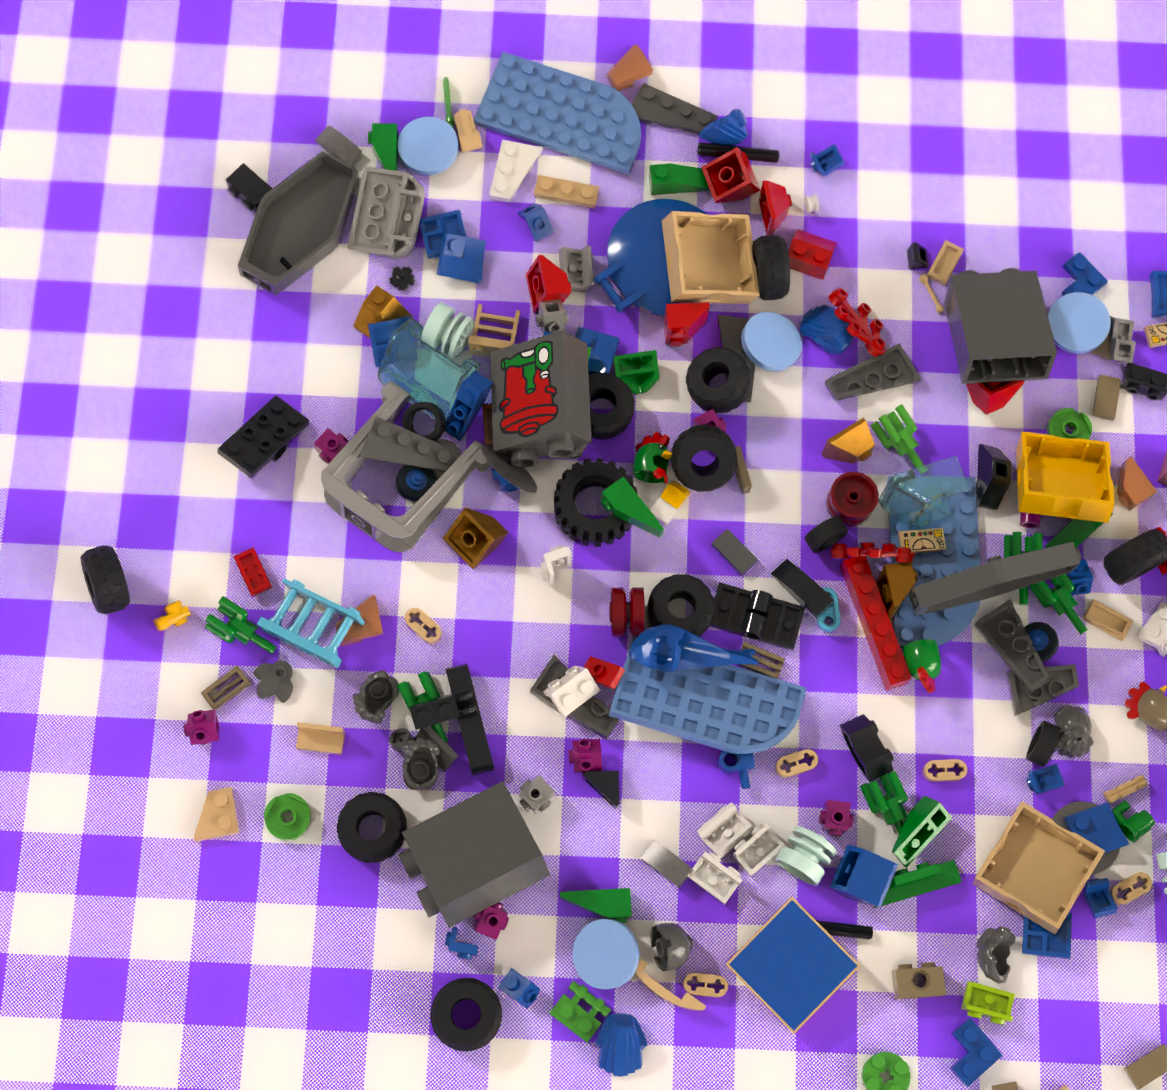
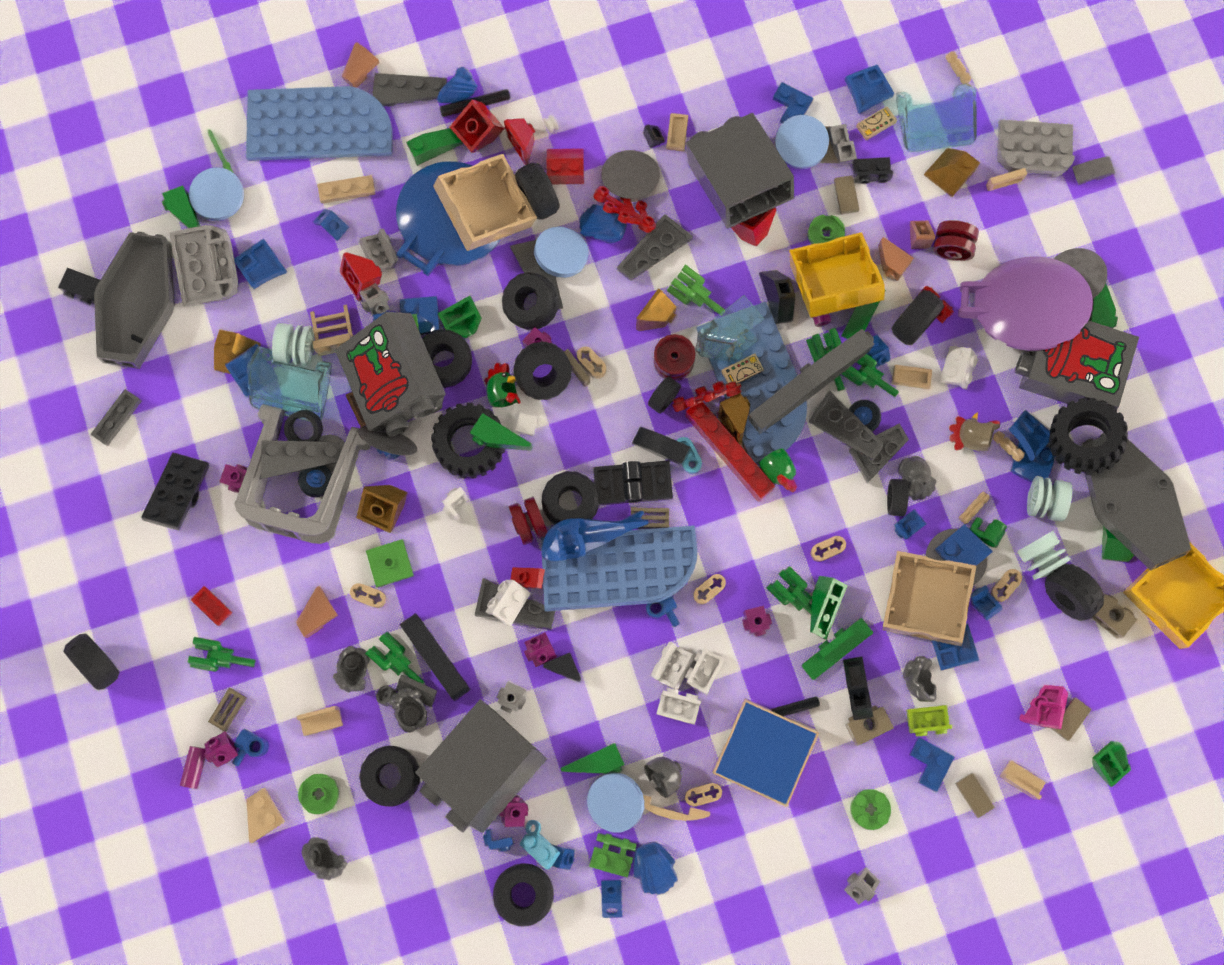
camera: 15 degrees left, 5 degrees up
(165, 735) = (193, 767): none -> magenta piece
(175, 615) = (161, 665): yellow plate -> none
(231, 336) = (116, 417): none -> dark grey plate
(231, 730) = (245, 744): none -> blue piece
(263, 888) = (322, 860): none -> dark grey hair
(272, 683) = (264, 690): dark grey plate -> none
(310, 644) = (282, 646): medium azure fence -> none
(338, 145) = (141, 221): flat silver slope -> none
(402, 278) = (239, 313): black plant -> none
(440, 709) = (408, 660): black hinge -> none
(459, 600) = (389, 563): none -> bright green plate
(461, 258) = (281, 278): blue plate -> none
(467, 404) = (333, 400): blue slope -> none
(468, 136) = (246, 171): tan piece -> none
(503, 969) = (538, 846): none -> medium azure hinge
(511, 168) = (293, 186): white wing -> none
(560, 1058) = (611, 898): none -> blue bracket
(666, 863) = (636, 710): flat silver slope -> none
(675, 494) = (531, 408): yellow slope -> none
(684, 321) = (484, 263): red slope -> none
(734, 552) = (596, 437): dark grey tile -> none
(764, 468) = (594, 360): none -> tan beam
(808, 851) = (744, 661): light aqua wheel -> none
(827, 160) = (550, 82): blue bracket -> none
(863, 876) = (795, 660): blue slope -> none
(867, 748) = (760, 555): black brick -> none
(877, 288) = (630, 174): none -> flat silver sticker
(921, 936) = (858, 688): none -> black slope
(924, 279) = (665, 152): tan hinge -> none
(1128, 1042) = (1047, 708): none -> dark pink slope

